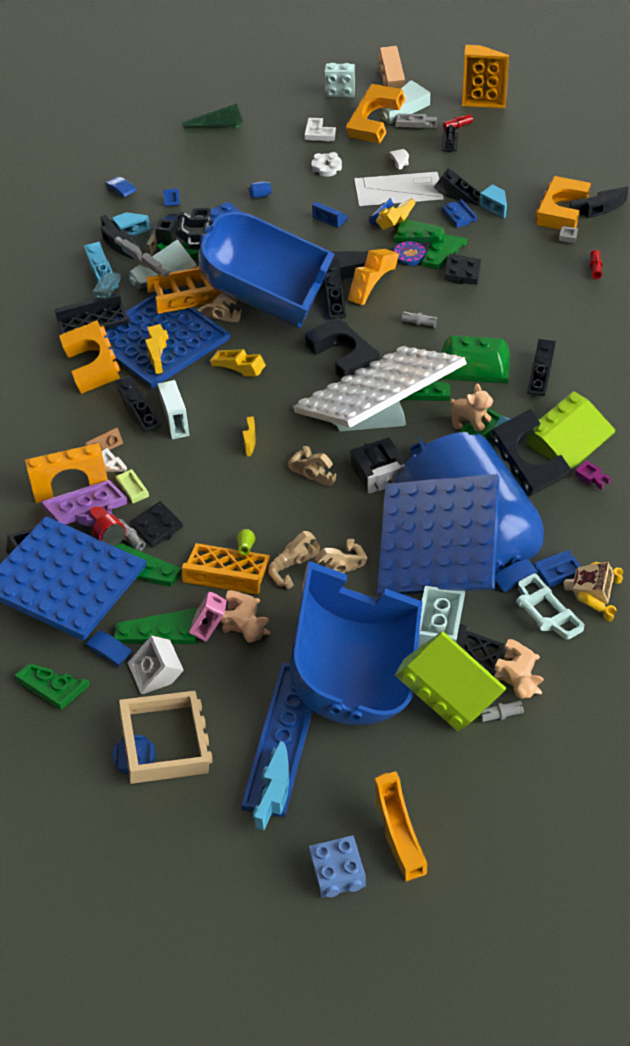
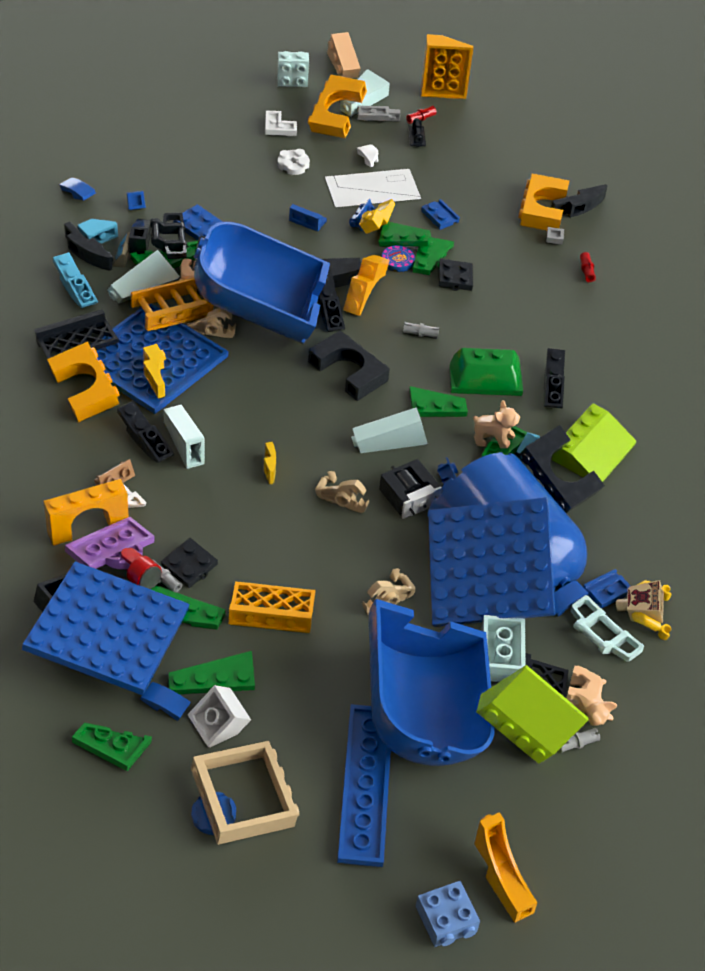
camera: 15 degrees left, 0 degrees up
(106, 284) = (88, 301): clear light blue tile -> none
(132, 486) = (154, 522): yellowish green tile -> none
(143, 259) = (127, 274): light grey piece -> none
(213, 610) = (270, 654): bright pink torso -> none
(221, 118) = (175, 111): clear green wedge -> none
(239, 361) = (241, 379): yellow slope -> none
(242, 616) = (302, 658): light nougat animal -> none
(245, 541) = (288, 576): lime cone -> none
(259, 189) = (229, 191): blue brick -> none
(276, 787) = (372, 835): medium azure slope -> none
(293, 554) = (341, 587): tan animal -> none
(378, 385) = (398, 405): white plate -> none
(457, 188) = (434, 187): black slope -> none
(494, 200) = (475, 200): medium azure slope -> none
(590, 473) = (622, 488): magenta plate -> none

